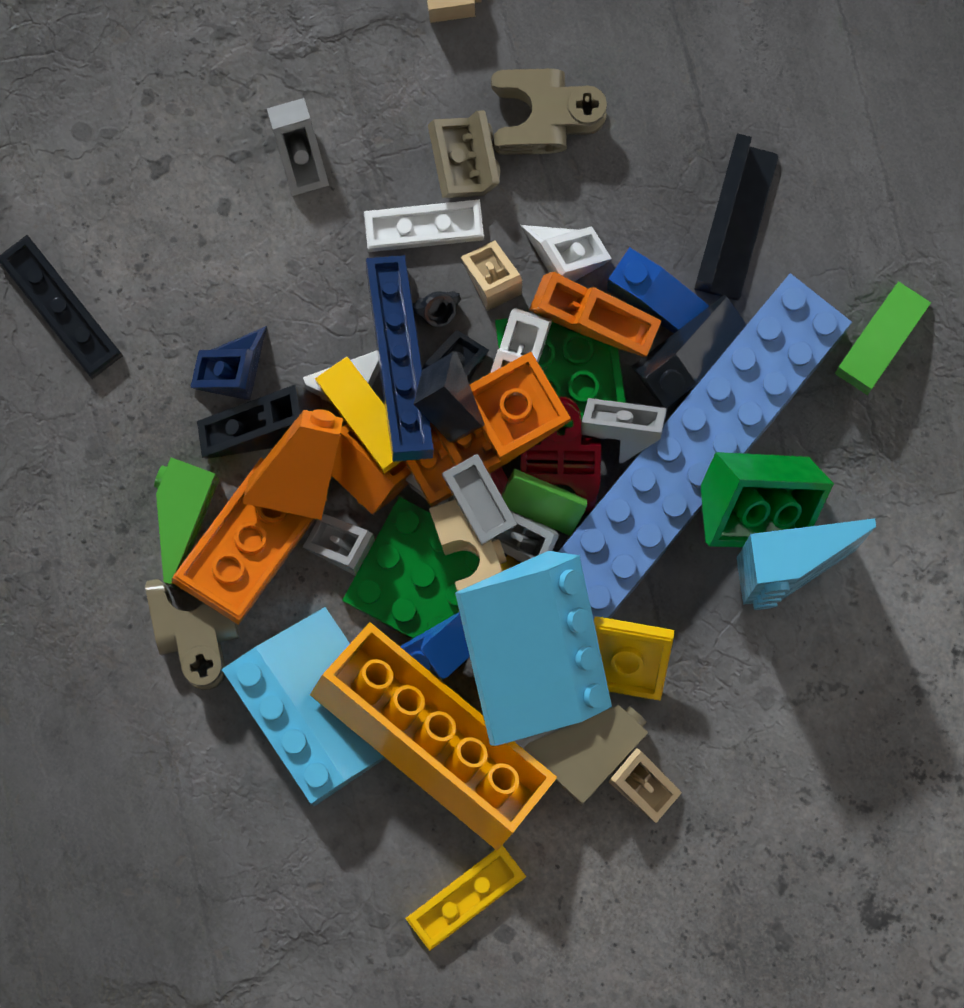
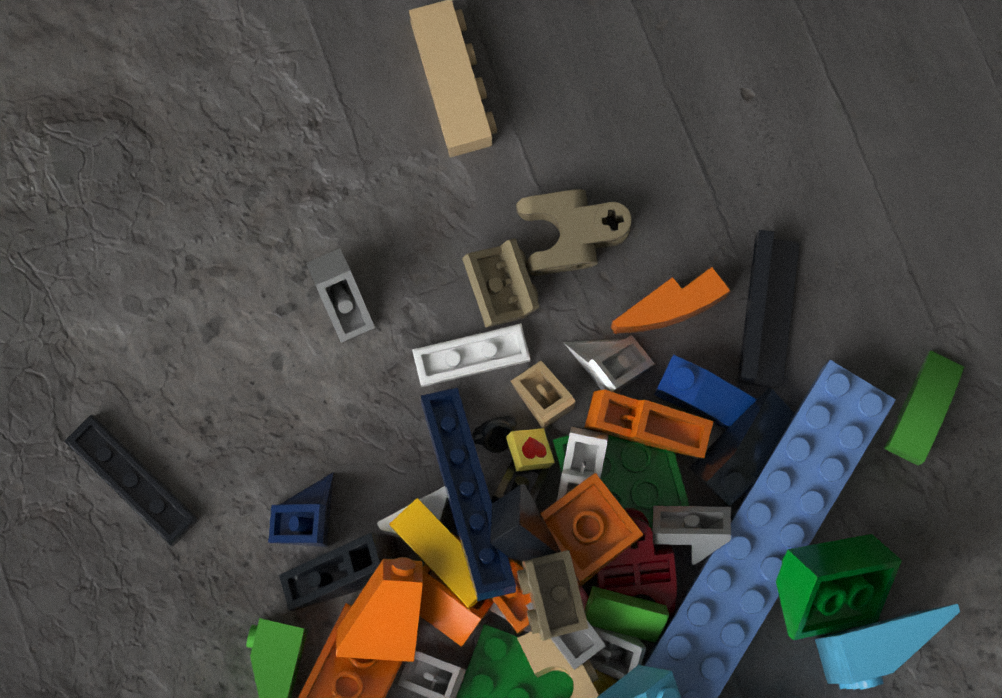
camera: 10 degrees left, 0 degrees up
(470, 327) = (530, 449): none -> light yellow tile
(470, 463) = (553, 595): none -> dark tan bracket
(636, 199) = (672, 304): none -> orange slope

